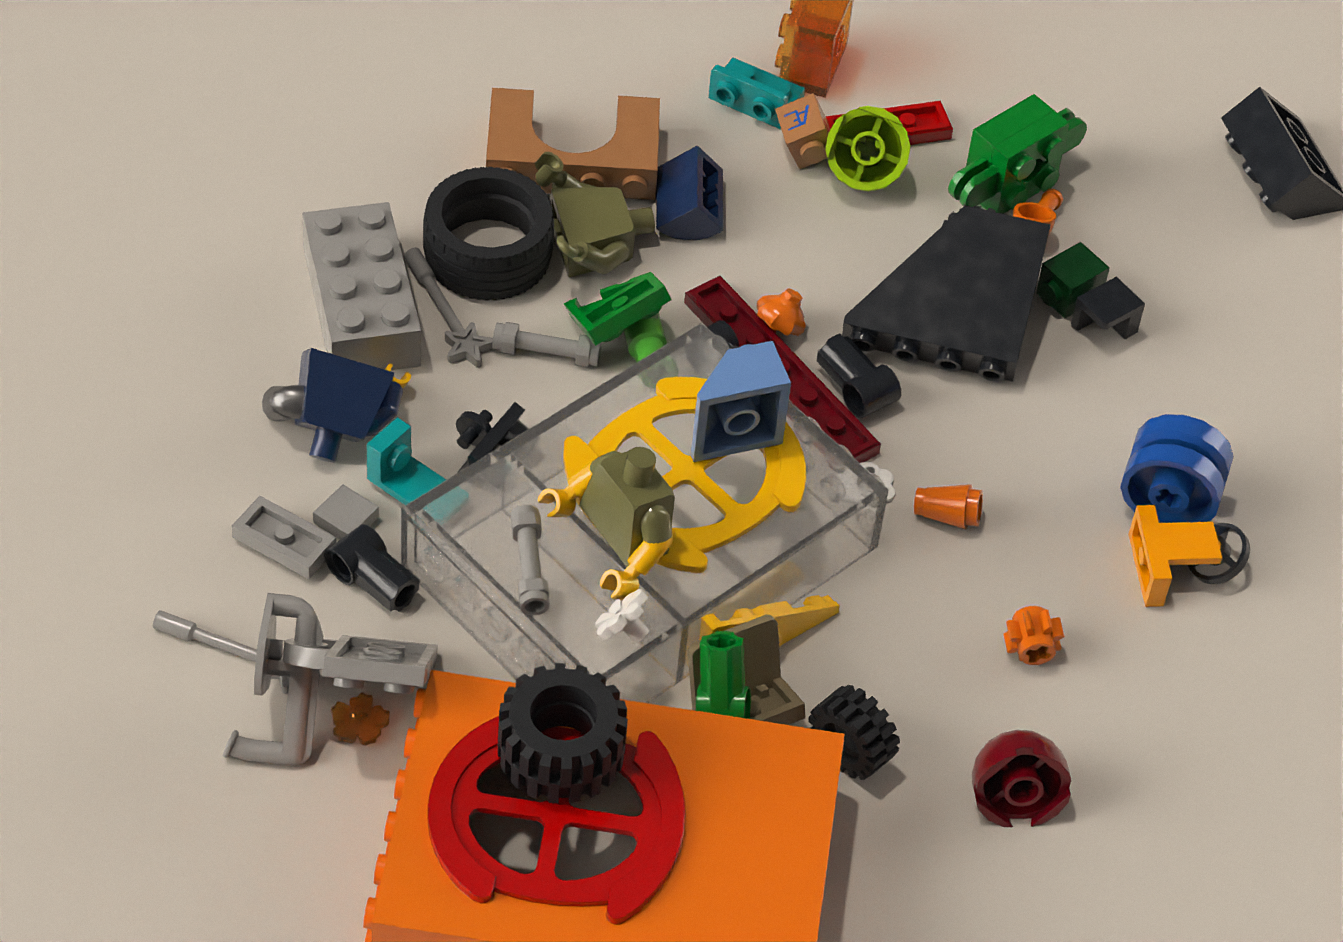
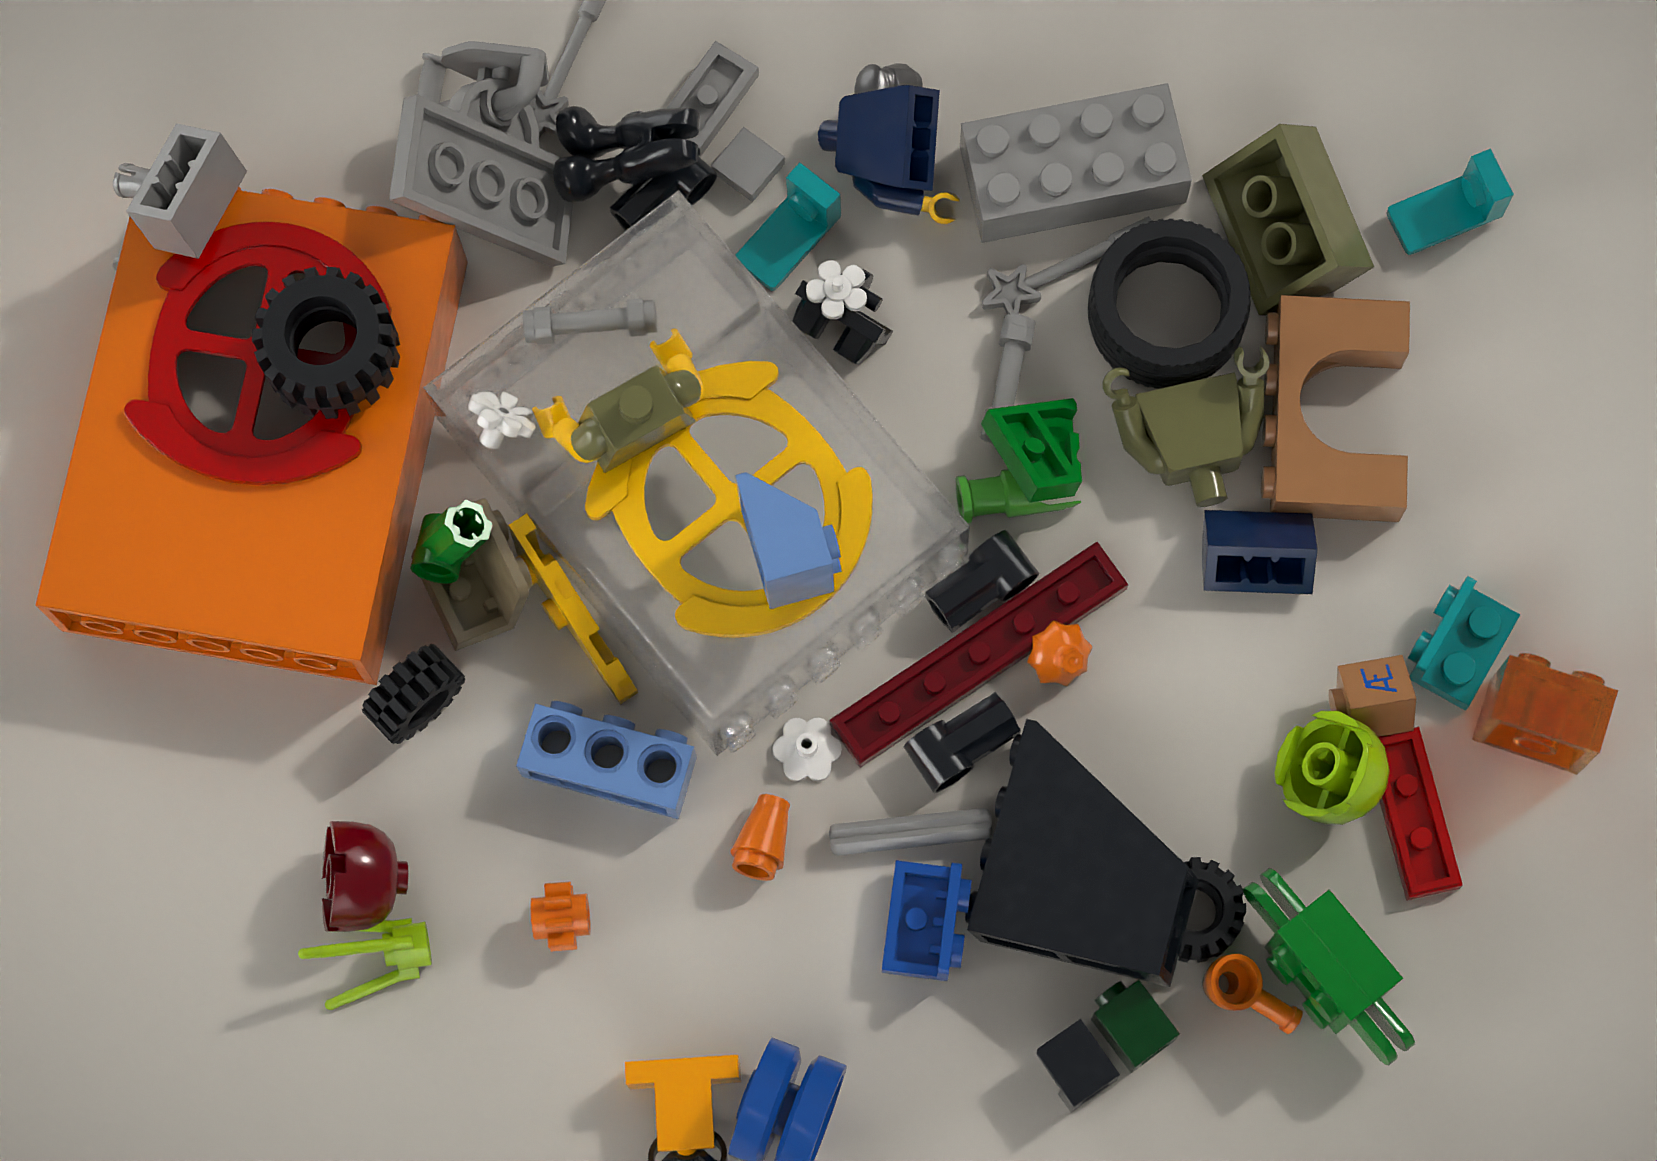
camera: 100 degrees right, 25 degrees up
(348, 559) = (651, 143): none -> black piece
(400, 70) = (1453, 206): none -> teal bracket
(406, 855) = (183, 191): none -> light grey brick
(409, 161) = (1287, 217): none -> olive slope
(481, 426) = (837, 289): none -> white plant
(893, 606) = (623, 783): none -> medium blue brick
(932, 416) = (910, 831): none -> light grey axle
(1006, 397) = (923, 919): none -> blue bracket
(1081, 756) = (403, 945): none -> lime plant

